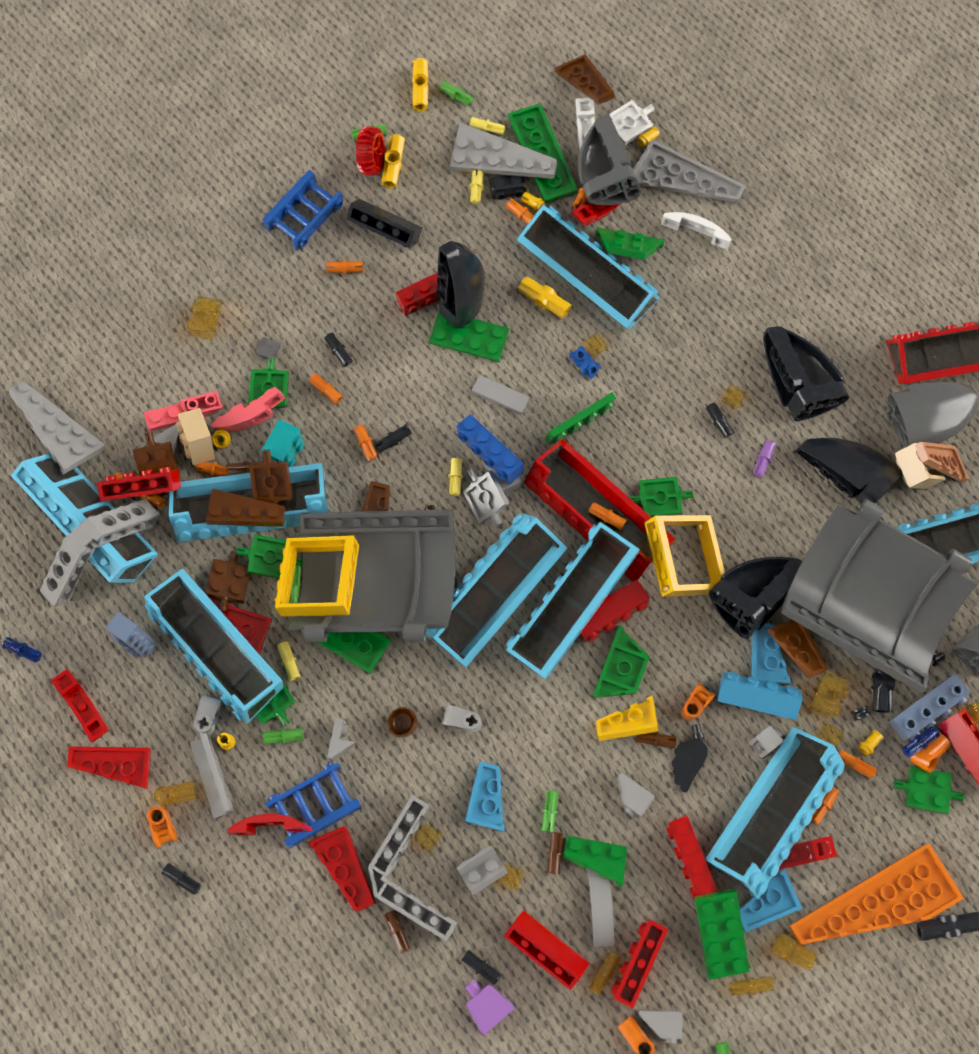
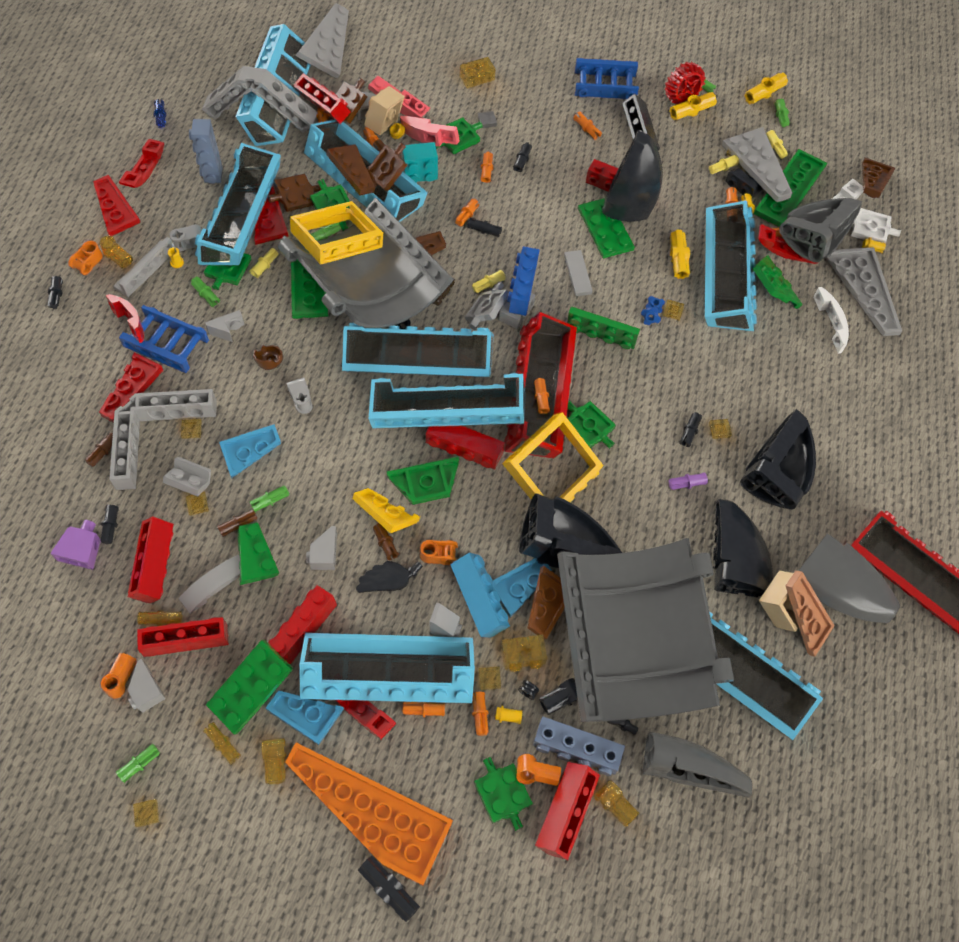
camera: 50 degrees right, 10 degrees down
(921, 741) = (538, 752): clear blue axle -> none

